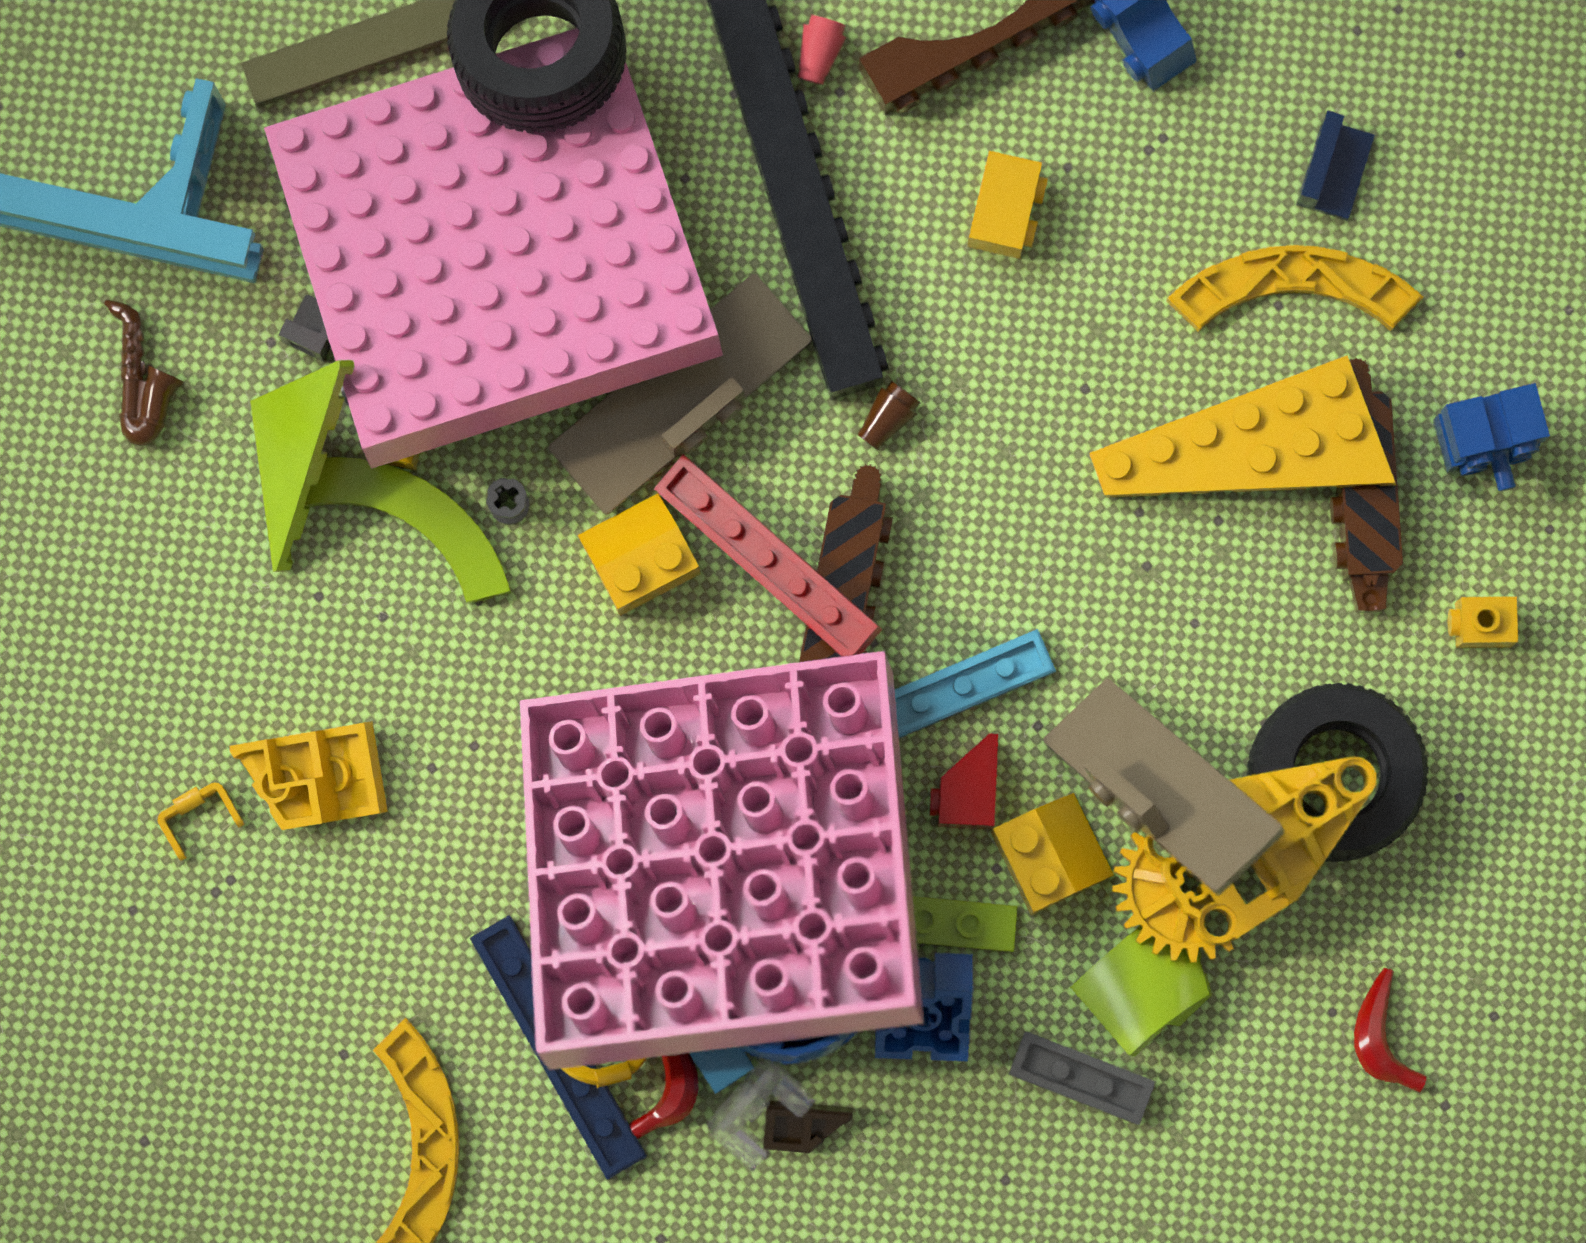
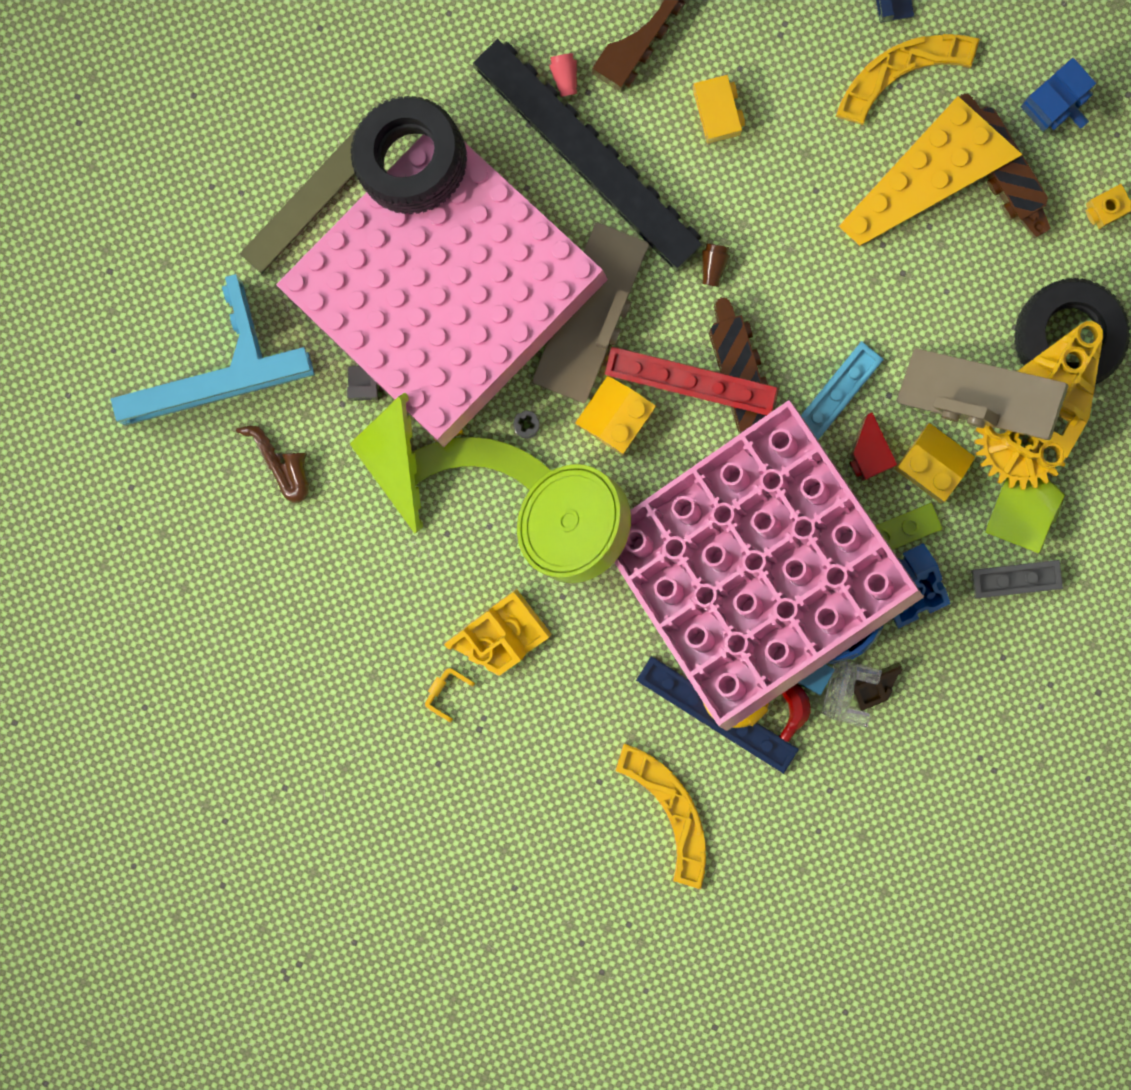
camera: 30 degrees left, 5 degrees up
(495, 670) = (573, 523): none -> lime brick

